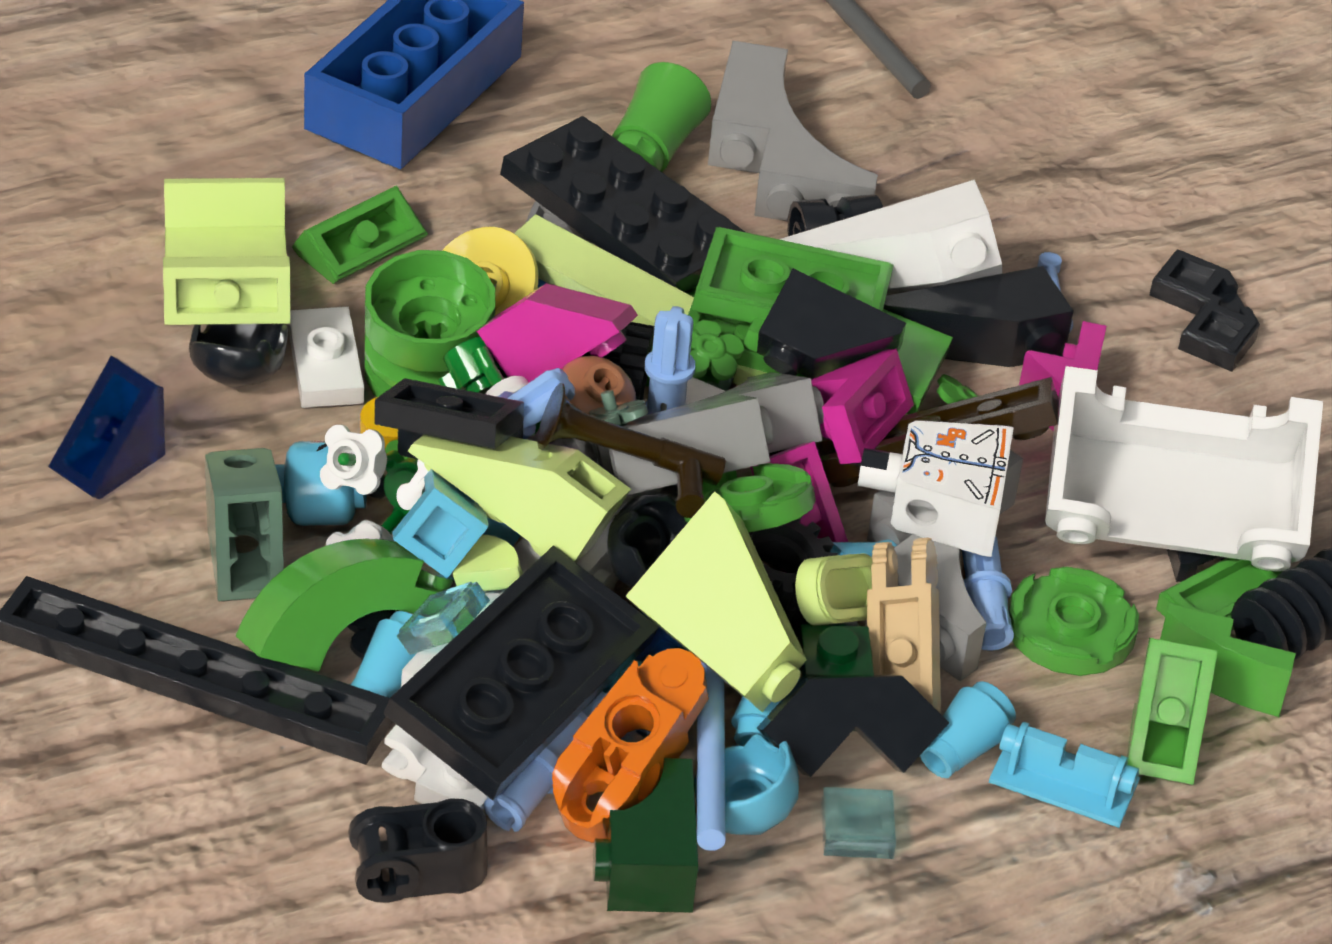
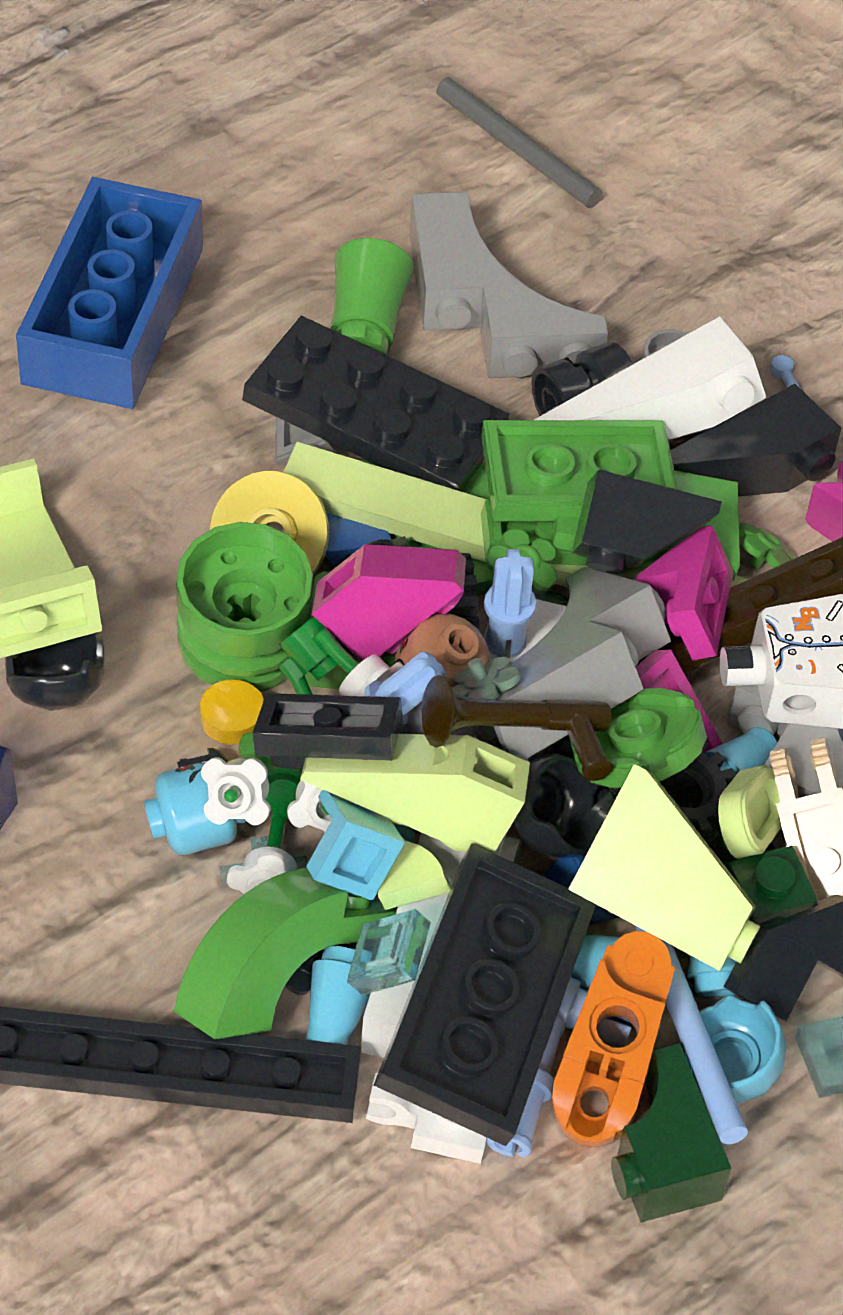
camera: 15 degrees left, 10 degrees up
(243, 500) = (130, 844): sand green torso -> none
(325, 357) = (142, 651): white plate -> none
(360, 236) = (122, 499): bright green slope -> none
(426, 849) = (432, 1222): black piece -> none

